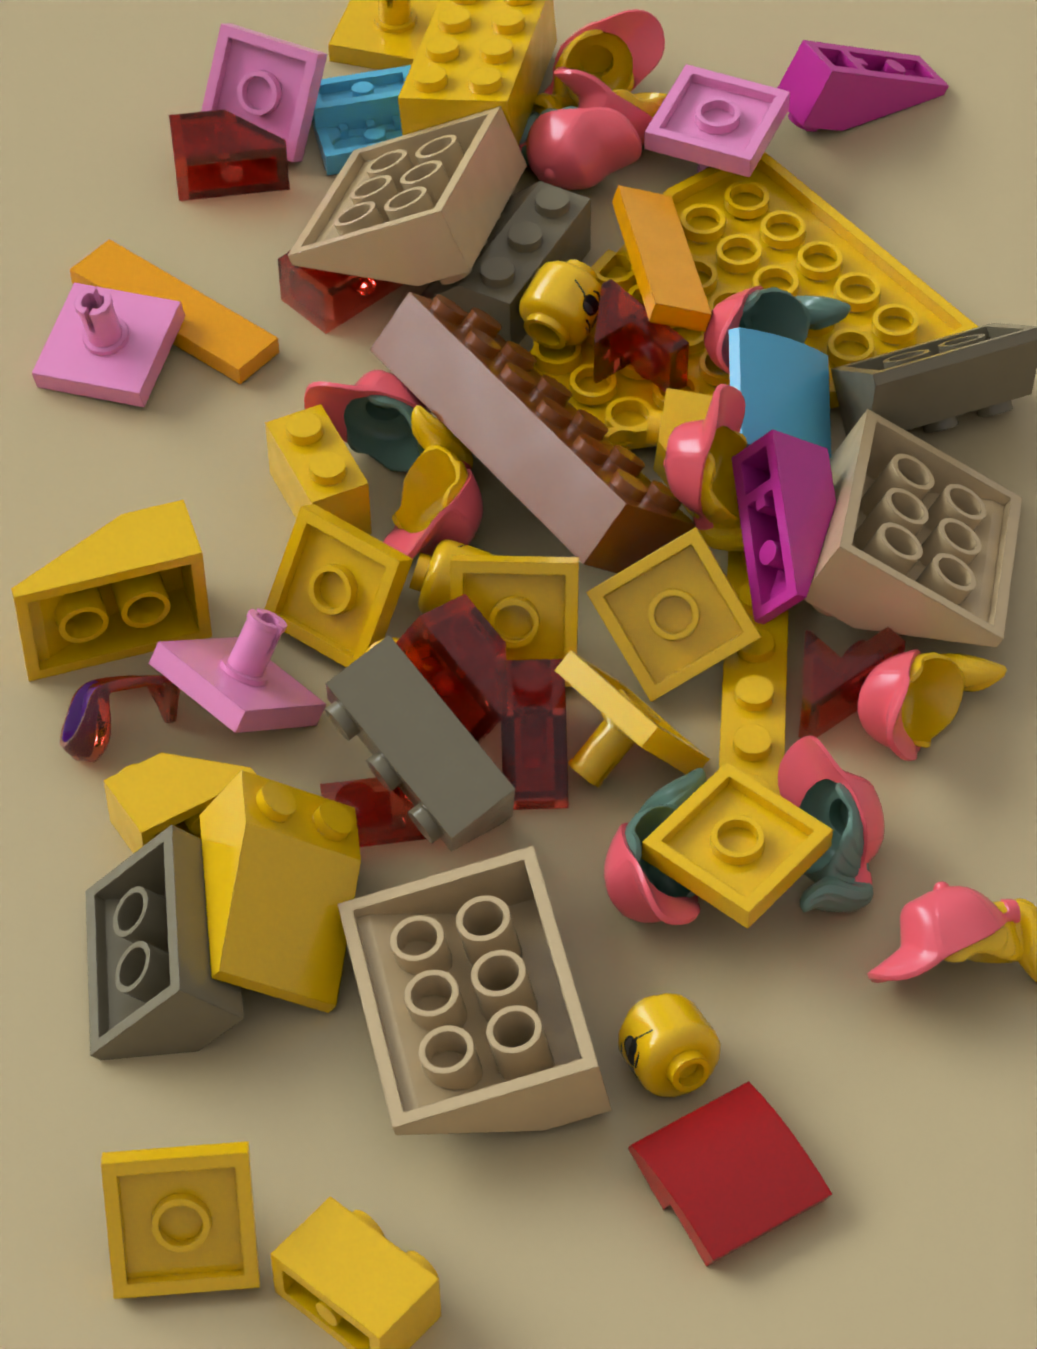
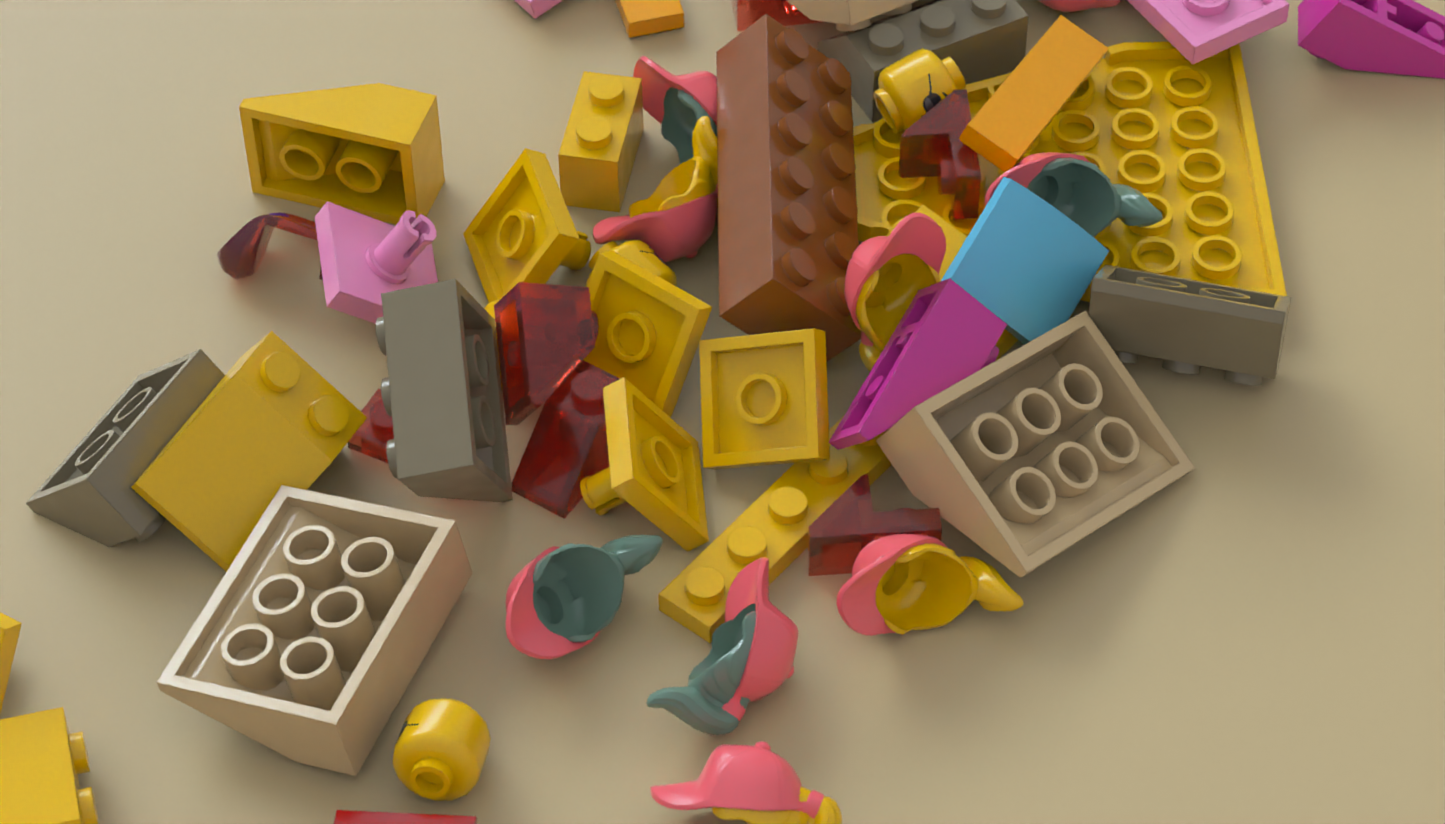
camera: 35 degrees right, 0 degrees up
(164, 792) = (237, 320): yellow slope -> none
(737, 844) = (628, 615): yellow tile -> none

